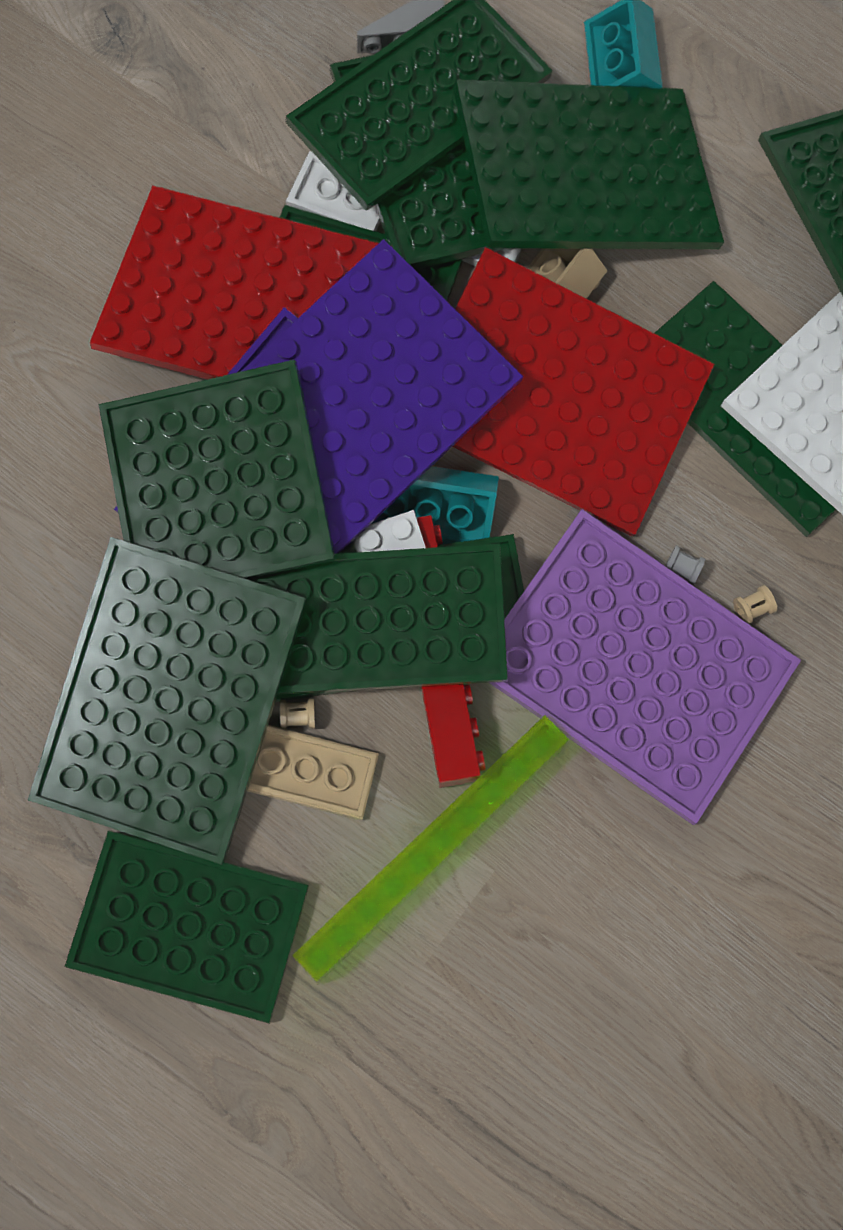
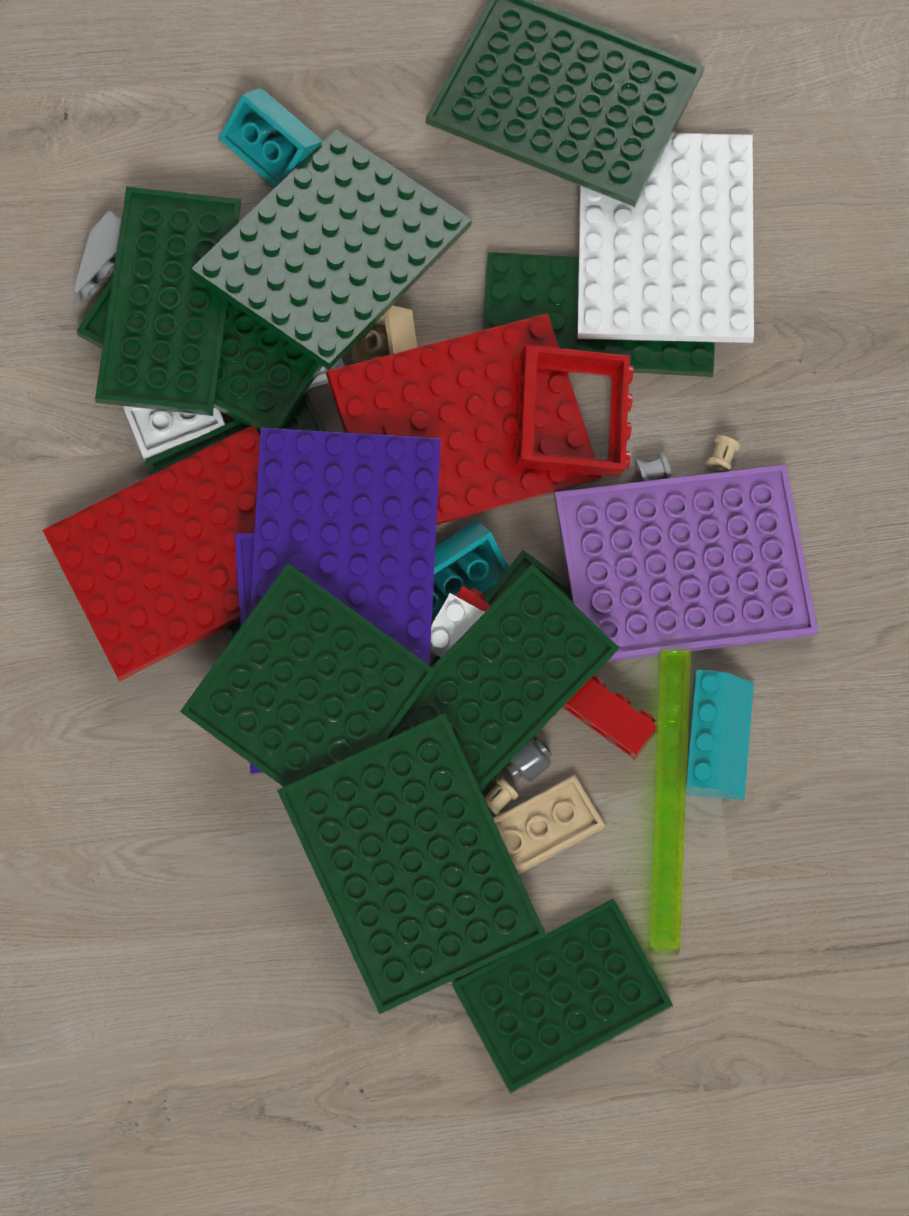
camera: 35 degrees left, 0 degrees up
(353, 707) = (531, 760): none -> dark grey head
(529, 832) = (719, 735): none -> teal slope
(702, 424) = (614, 367): none -> red piece

